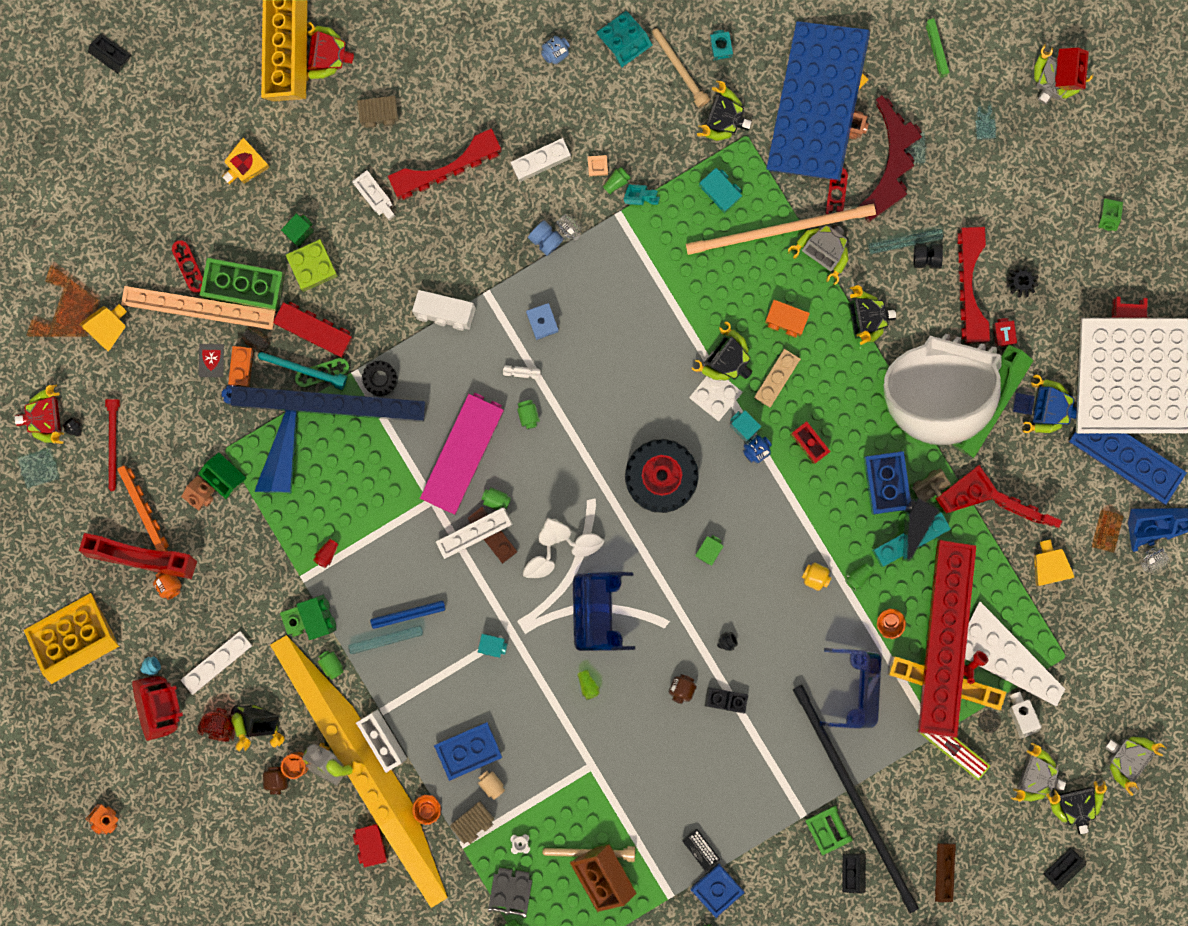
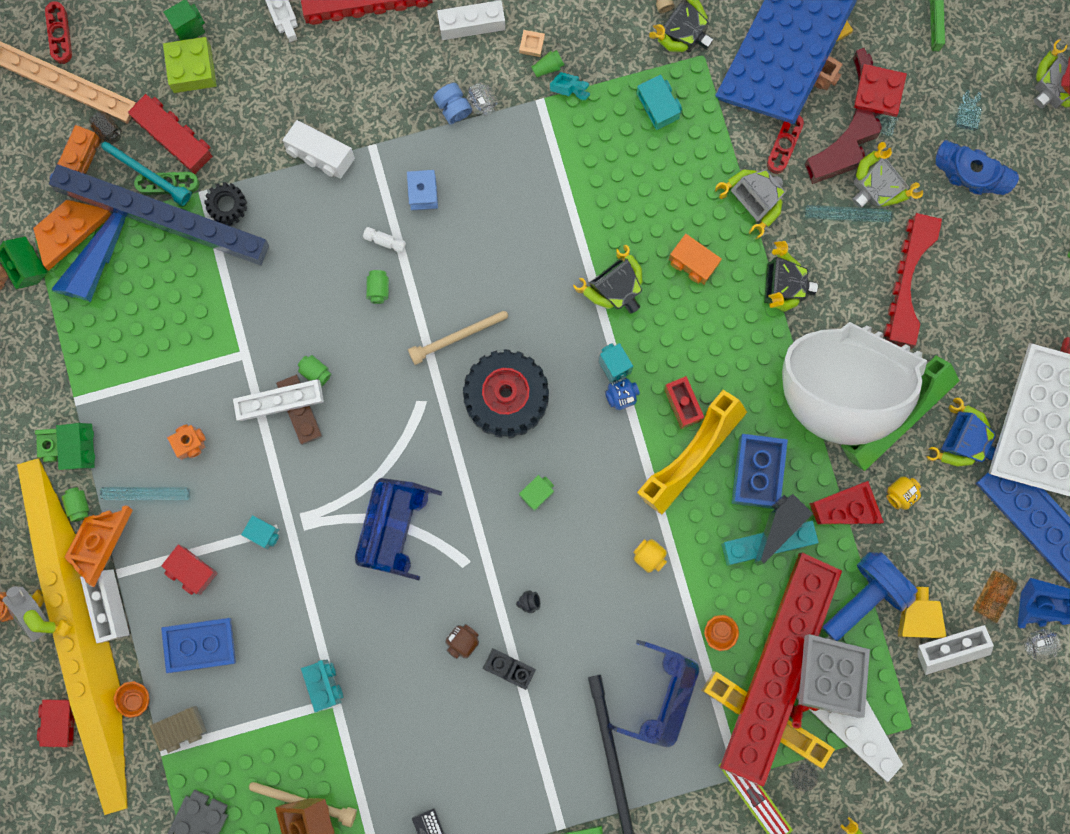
camera: 15 degrees right, 5 degrees down
(211, 360) = (51, 139): dark grey sticker -> none
(242, 284) = (107, 63): bright green brick -> none
(250, 436) = (67, 229): none -> orange wing
(325, 554) = (107, 379): red cone -> none
(359, 691) = (96, 542): none -> orange wing
(404, 593) = (180, 443): none -> orange brick
(408, 614) = (179, 472): blue axle -> none
(441, 692) = (189, 570): none -> red brick
(462, 453) = (291, 310): dark pink brick -> none
(491, 784) = (213, 691): tan brick -> none
(516, 848) = (220, 772): white plate -> none
(553, 533) = (365, 420): white plant -> none
(577, 755) = (321, 685): none -> teal bracket
(579, 460) = (419, 353): none -> tan piece
(588, 685) = (356, 608): clear neon green cone -> none
(715, 396) = (592, 325): white plate -> none
(777, 378) = (665, 323): tan plate -> none
(843, 452) = (718, 423): none -> yellow arch
(858, 212) = (806, 164): light nougat piece -> none
(858, 577) = (697, 570): bright green cone -> none
(904, 130) = (880, 90): none -> red plate
(921, 258) = (870, 234): black wheel -> none
(926, 209) = (880, 181): none -> torso
(931, 485) = (810, 487): dark tan hips -> none
(991, 634) = (834, 676): none -> light grey plate
(1004, 332) = (934, 341): red brick -> none
(1011, 467) = (903, 493): none -> yellow head
(1013, 547) = (884, 583): none -> blue piece
(1019, 177) = (991, 179): none -> blue piece
(1022, 288) = (964, 283): black gear -> none
(1023, 404) = (935, 426): clear blue plate -> none
(1025, 724) = (847, 793): white torso -> none
(1028, 512) = (910, 549): red wing -> none
(1084, 585) = (955, 649): none -> white brick

